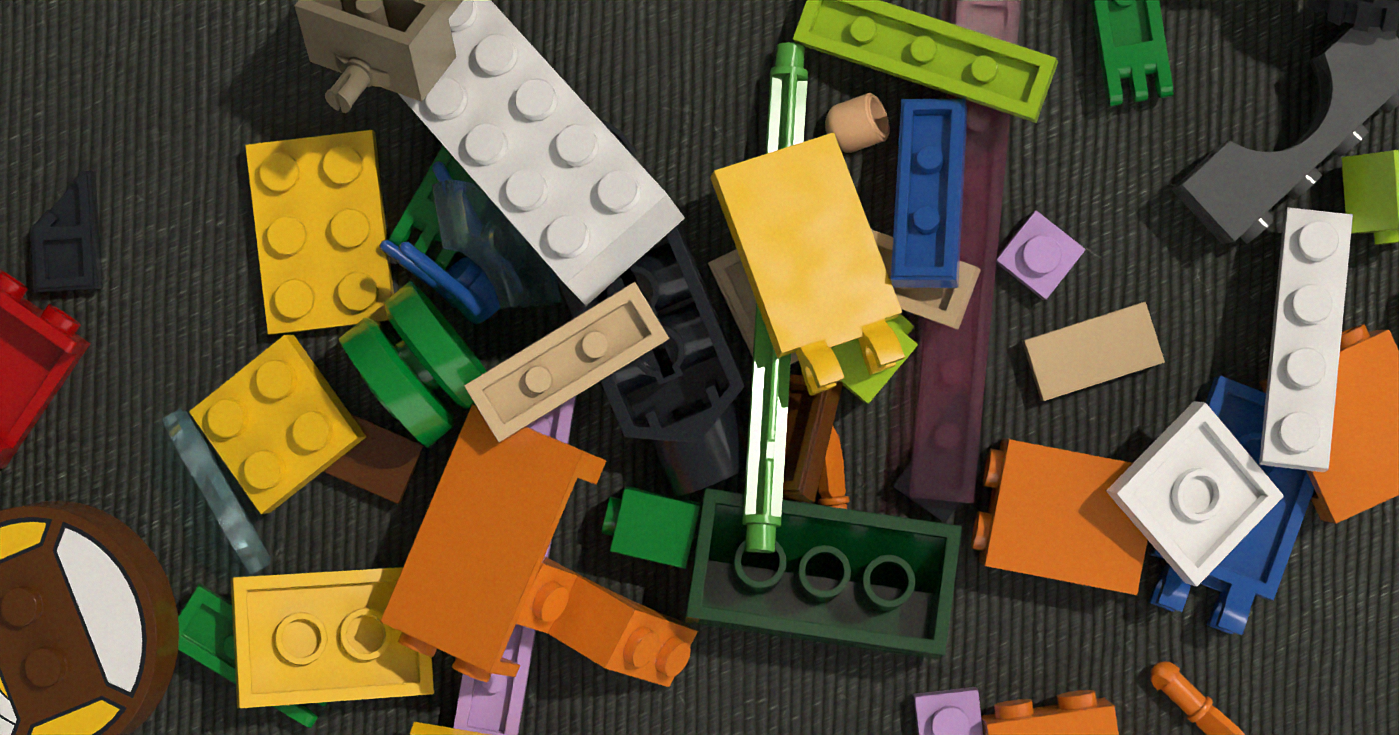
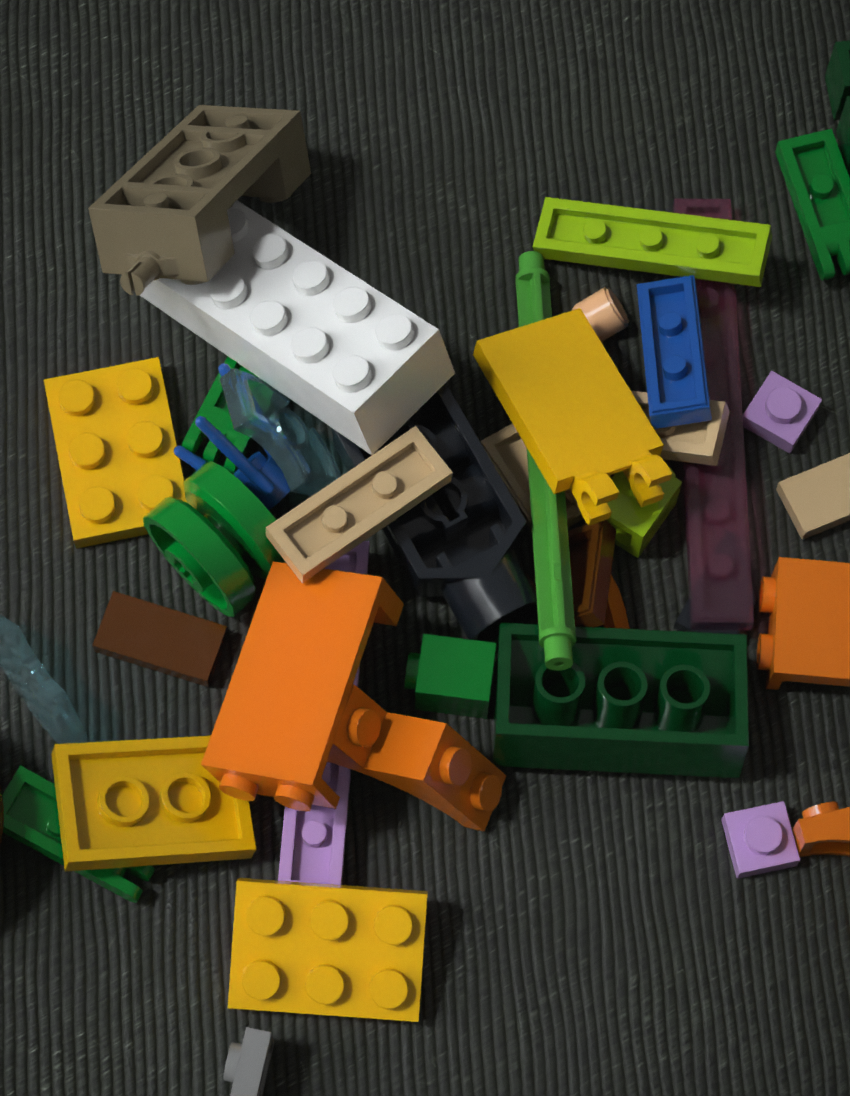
camera: 15 degrees left, 20 degrees down
(277, 424) = (88, 617): yellow plate -> none

